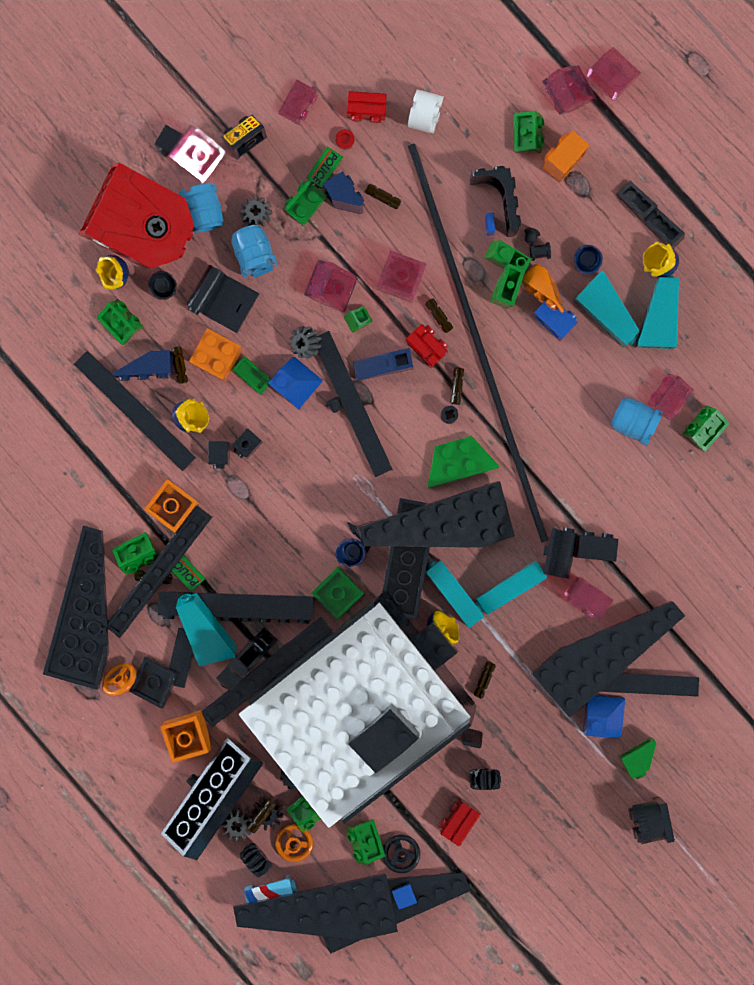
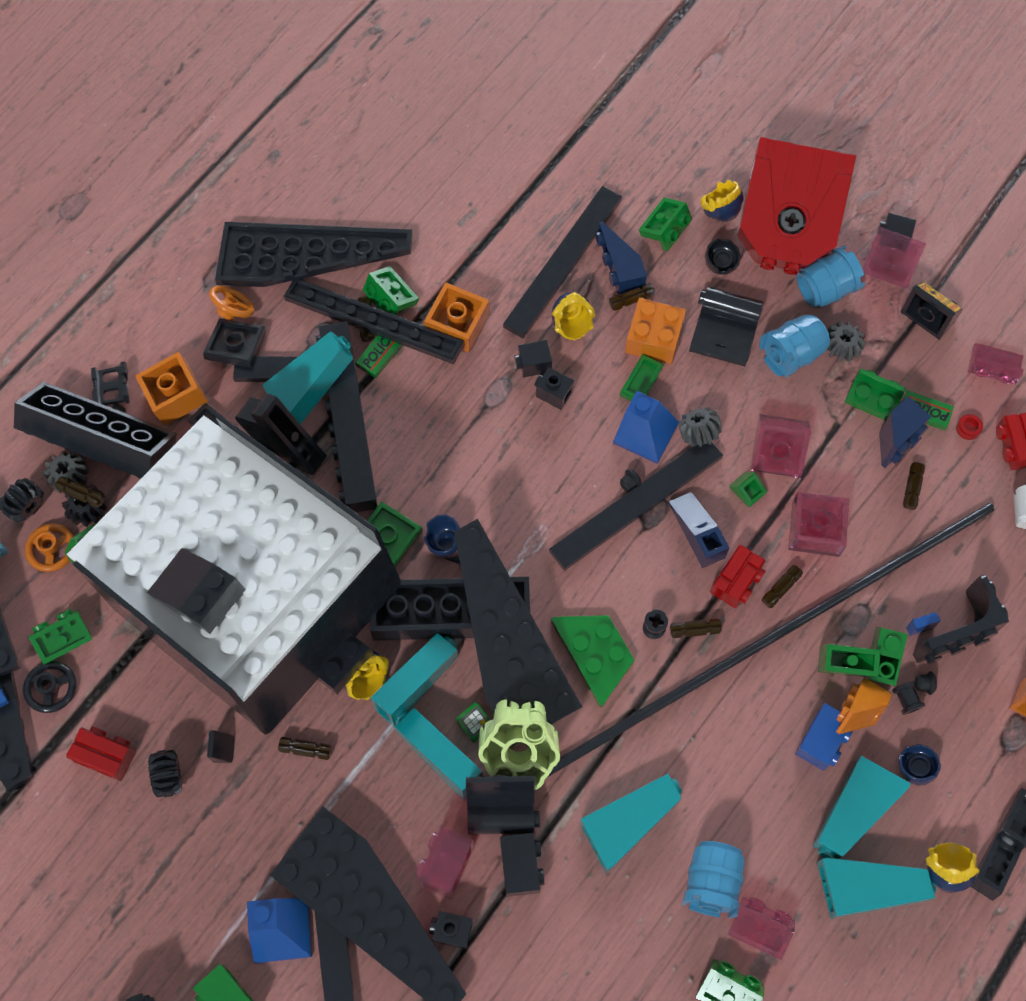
camera: 75 degrees right, 20 degrees down
(170, 790) = (101, 387): none -> black piece
(491, 558) = (472, 720): none -> slope
(522, 531) = (524, 726): none -> yellowish green piece
(583, 468) = (625, 822): none -> teal slope
(629, 602) = (451, 929): none -> black brick

